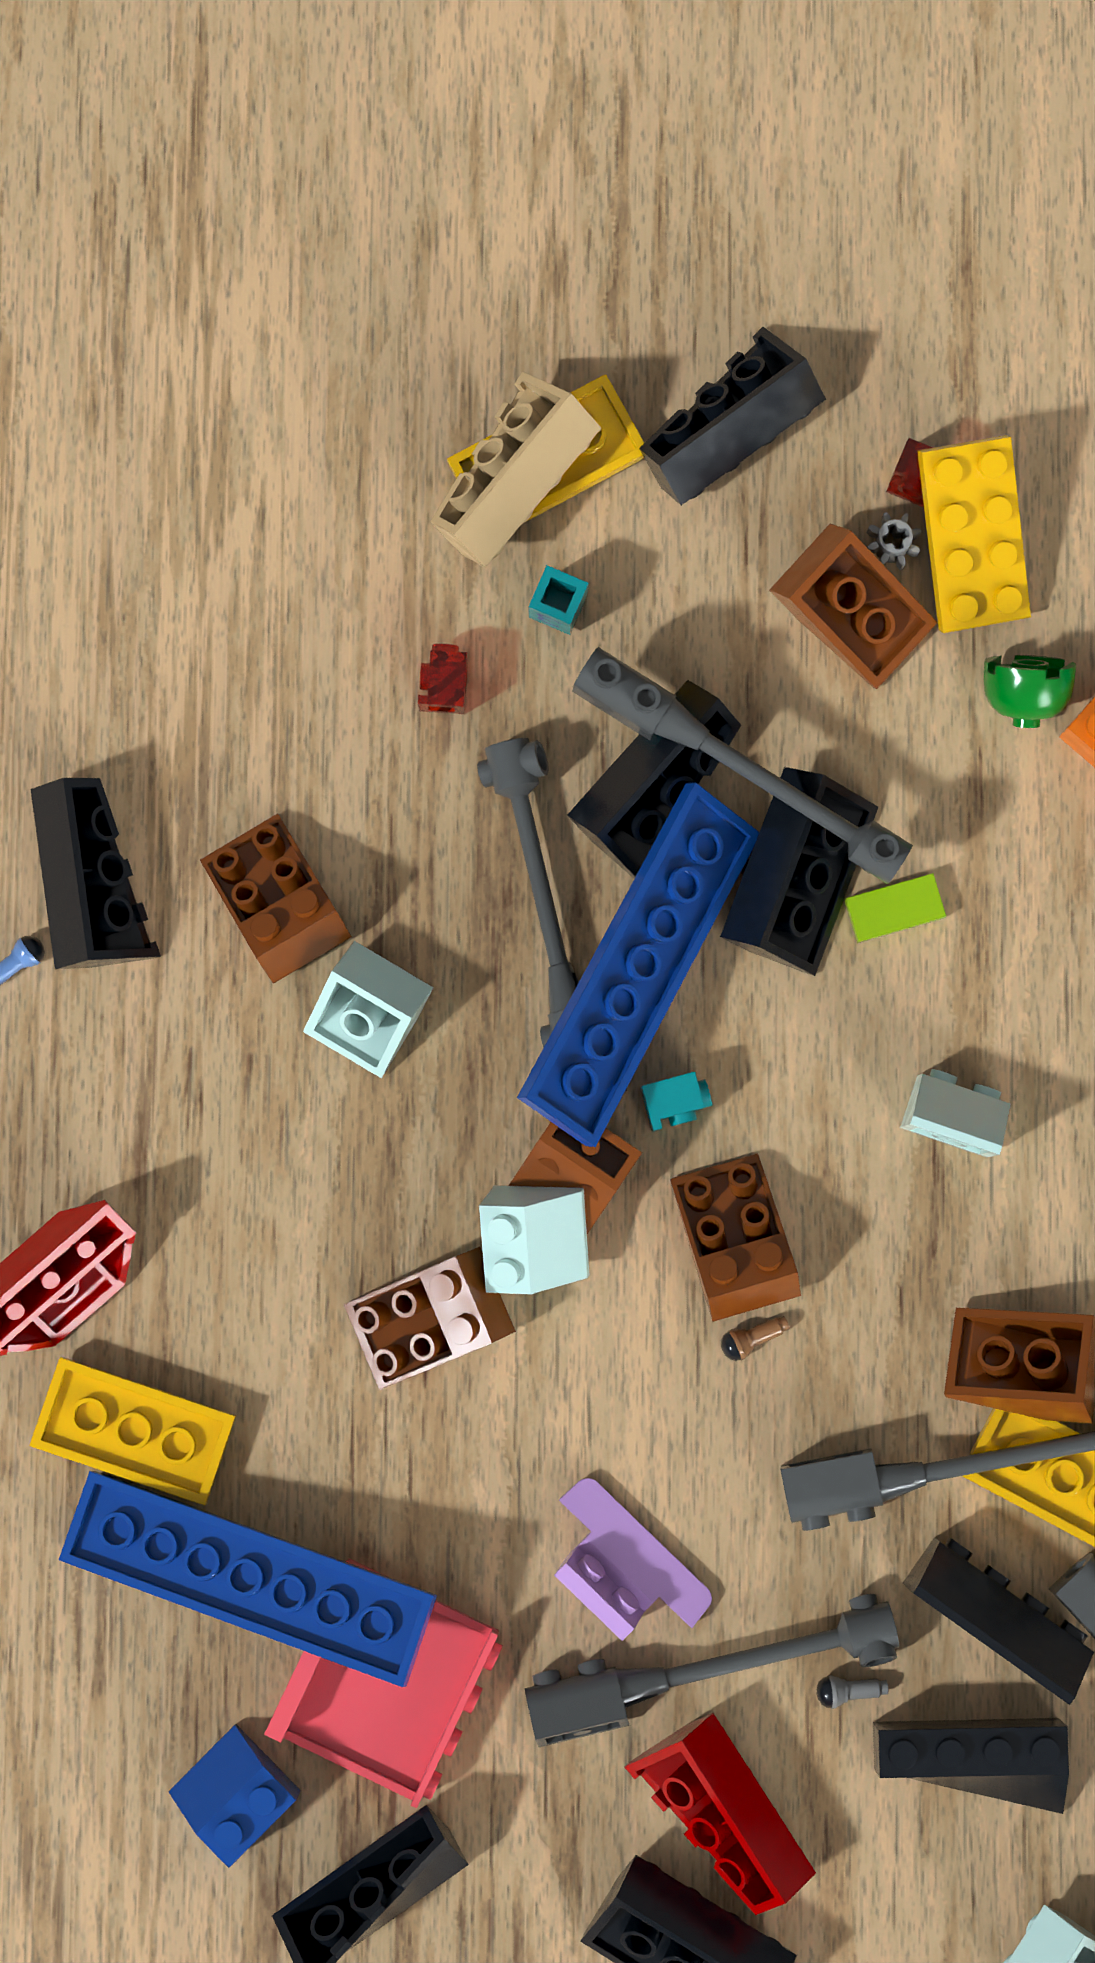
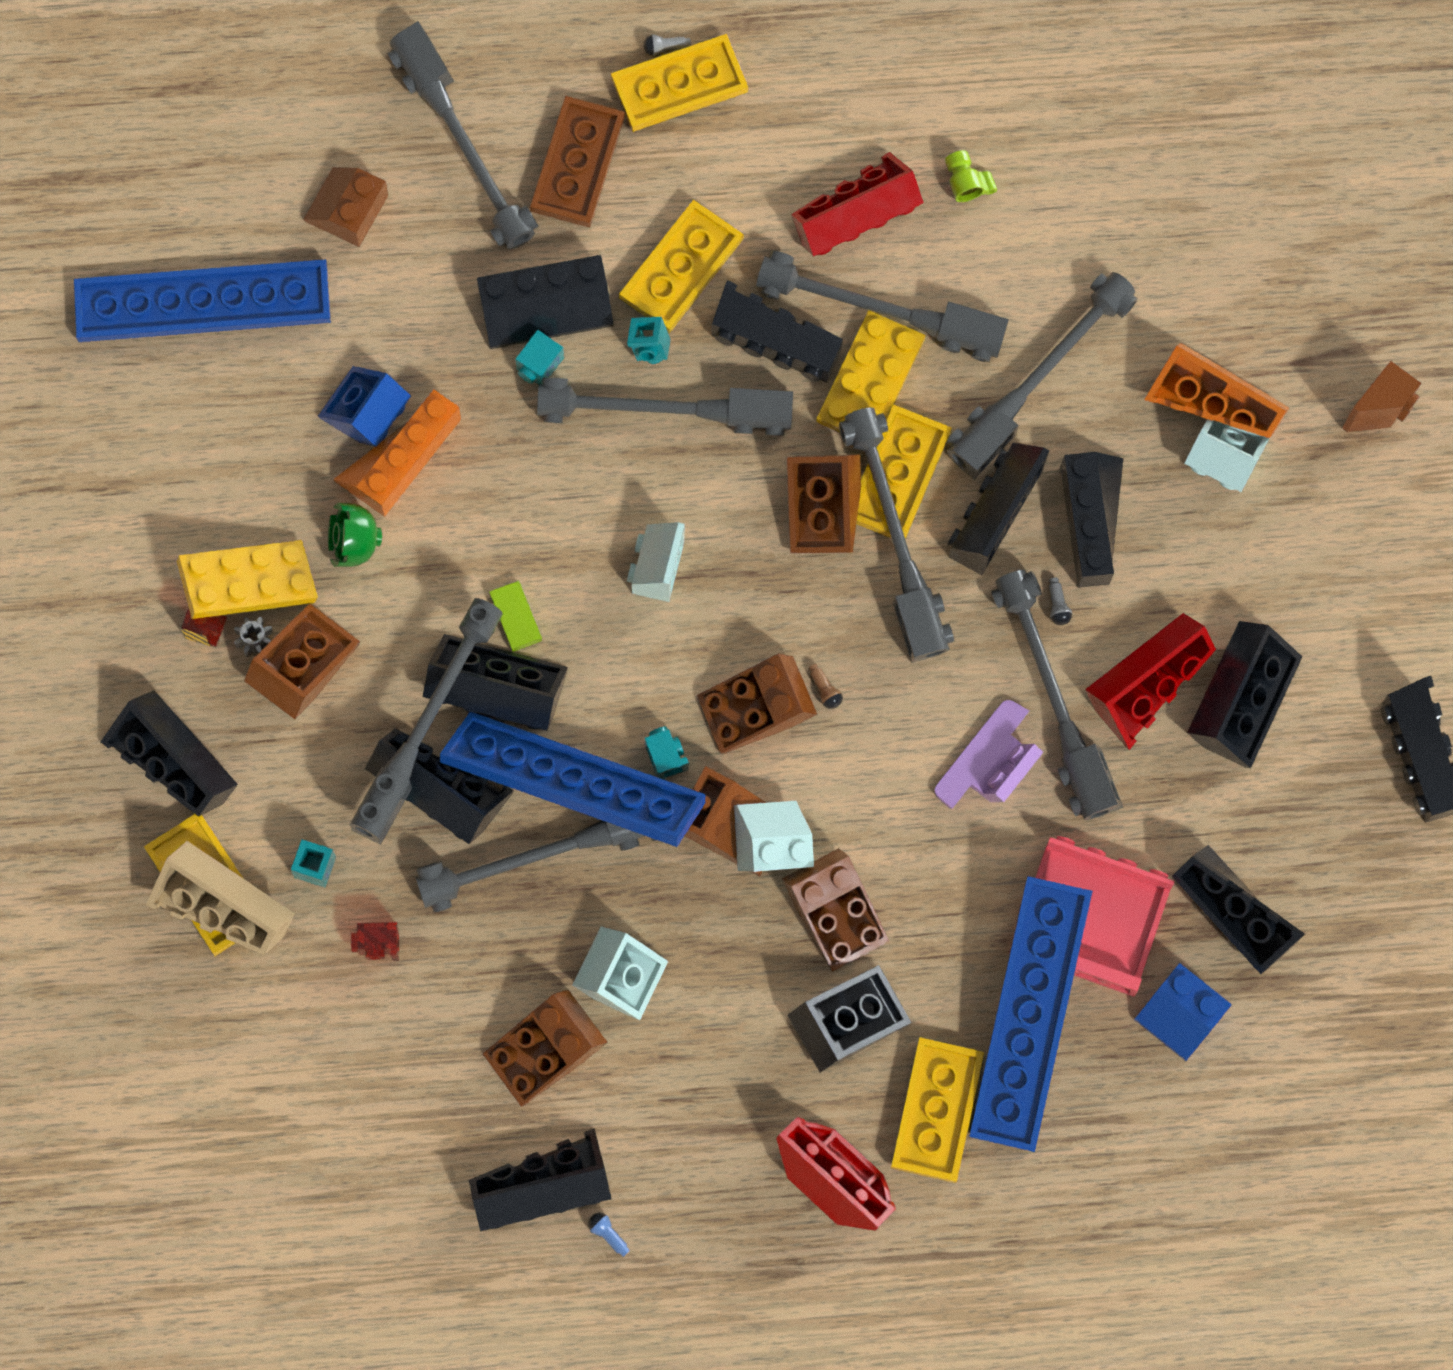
camera: 100 degrees left, 10 degrees down
(271, 1321) = (848, 1018): none -> black slope

